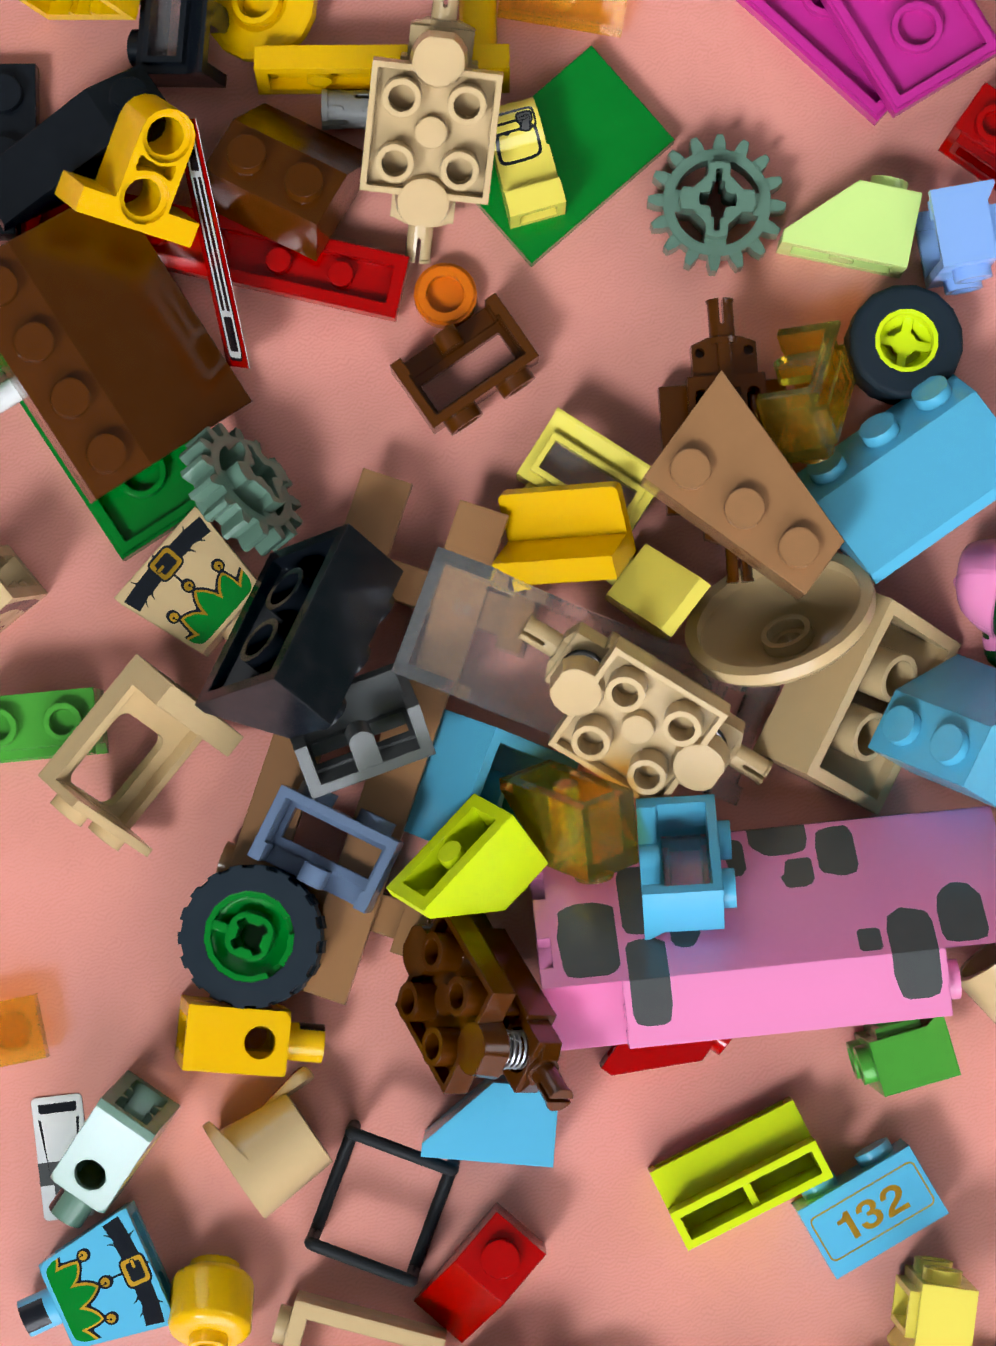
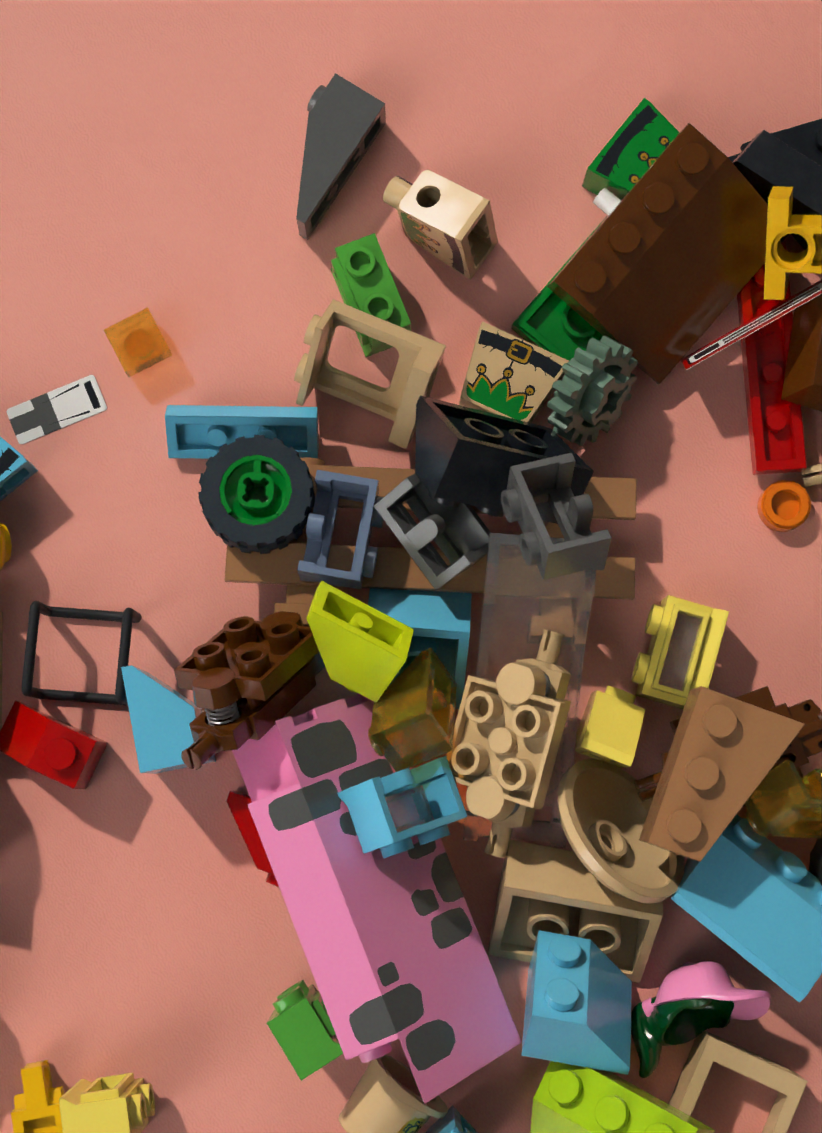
camera: 70 degrees right, 5 degrees down
(109, 1148) = (70, 437): torso -> none
(151, 961) = (202, 430): none -> medium azure plate
(214, 1037) = (167, 491): yellow torso -> none
(272, 1147) = (101, 558): tan hat -> none
(399, 565) = (551, 482): none -> dark grey window
(452, 346) = (747, 522): reddish brown window -> none
(566, 533) = (635, 645): yellow panel -> none
(740, 1173) = (177, 924): neon yellow piece -> none
(869, 1206) = (179, 1034): medium azure brick -> none

